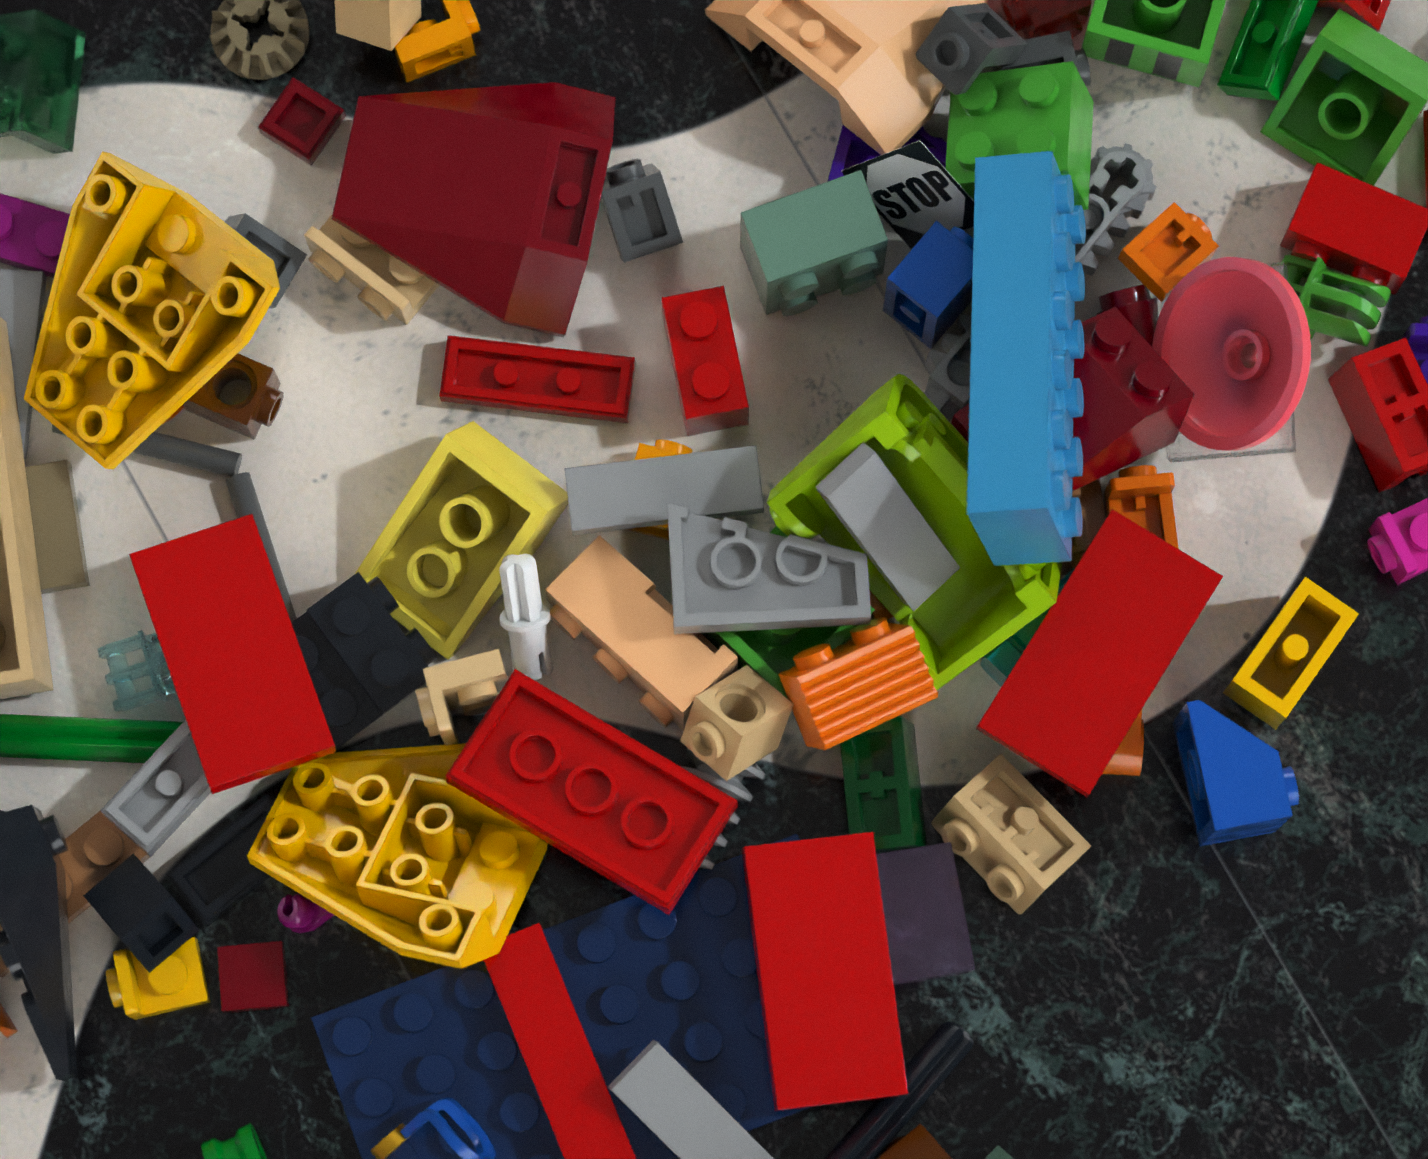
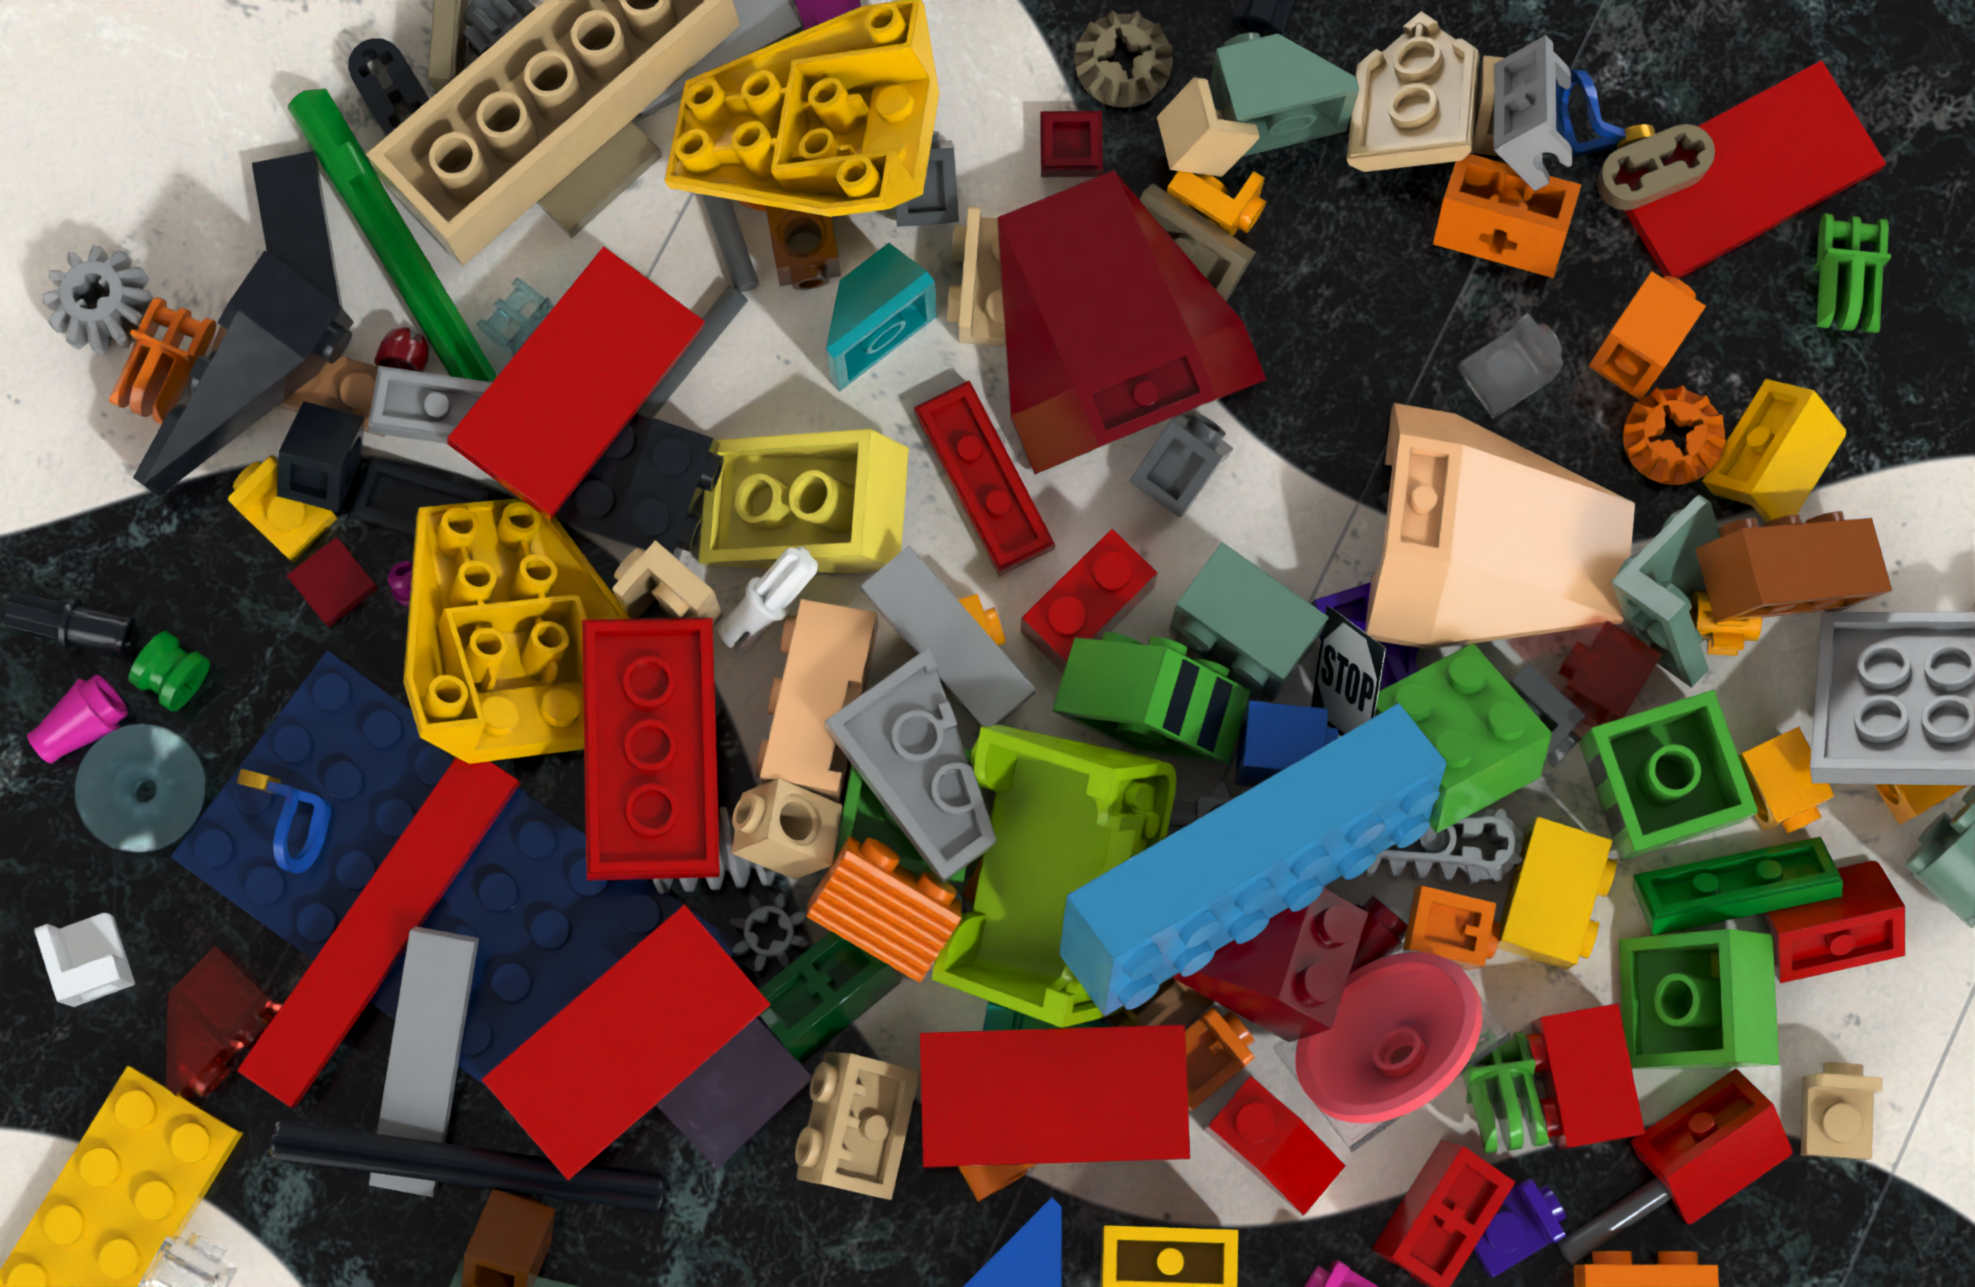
camera: 55 degrees right, 0 degrees up
(93, 788) = (402, 352): none -> dark red hinge
(337, 367) = (877, 312): none -> teal slope
(474, 66) = (1210, 248): none -> dark tan plate
(806, 783) = (762, 917): none -> dark grey gear
(826, 357) = (1152, 697): none -> bright green brick
(887, 526) = (1031, 842): light grey tile -> none
(967, 42) = (1510, 635): dark grey bracket -> none
(1194, 153) = (1555, 894): none -> yellow brick
(1246, 510) = (1275, 1145): none -> red slope

